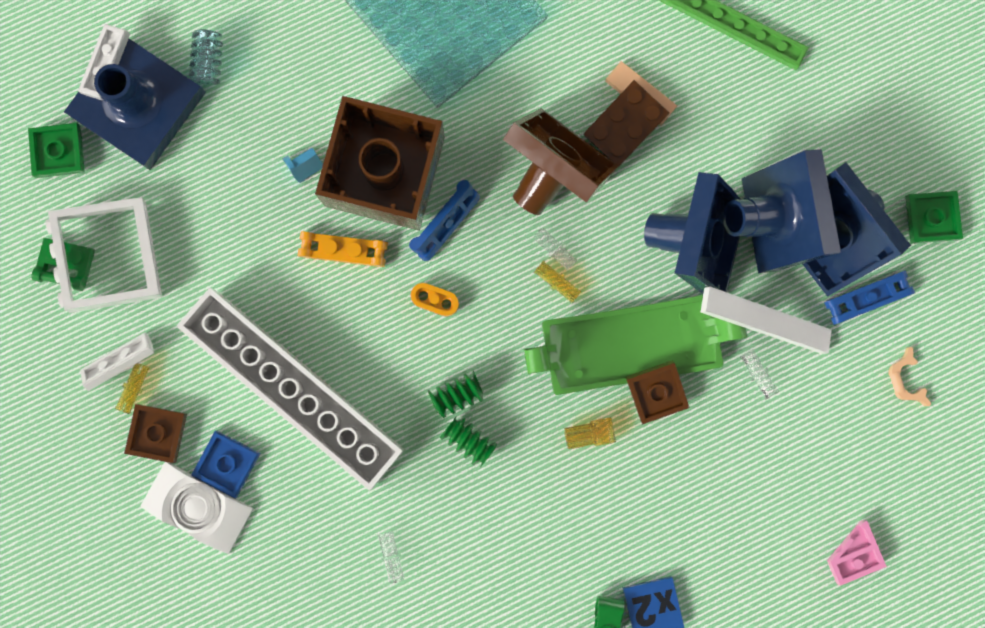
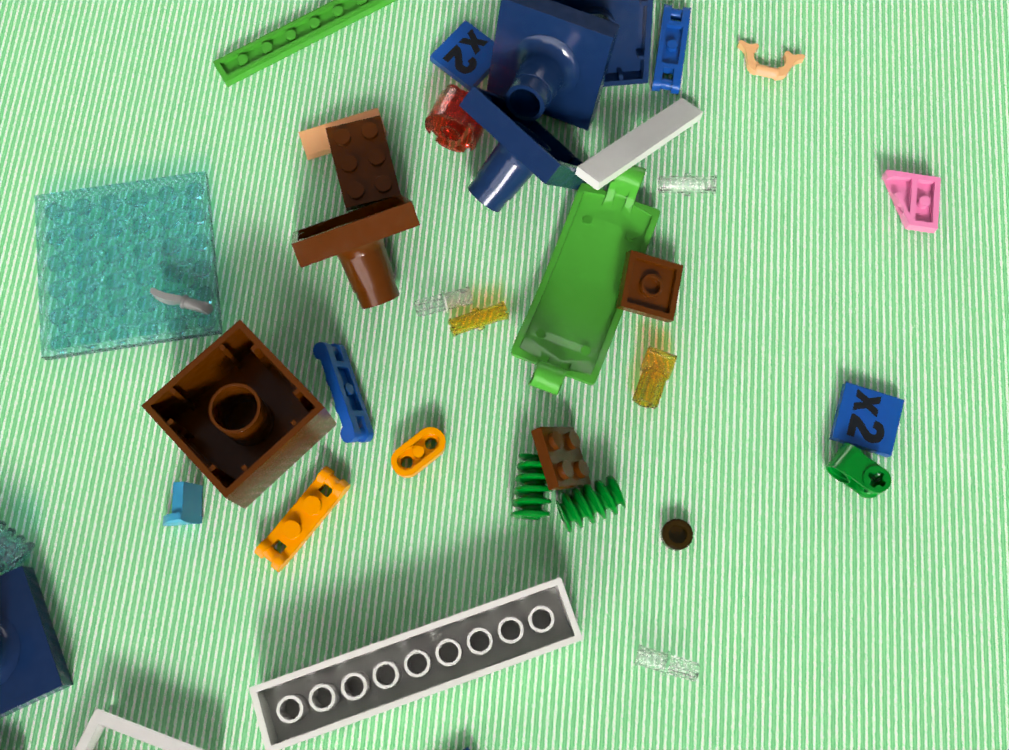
camera: 55 degrees left, 10 degrees down
(441, 68) = (184, 301): none -> light grey piece
(485, 514) = (676, 534): none -> dark brown tile
(488, 402) = (561, 457): none -> reddish brown plate
(700, 160) = (451, 124): none -> clear red brick
(763, 143) = (465, 55): none -> blue tile

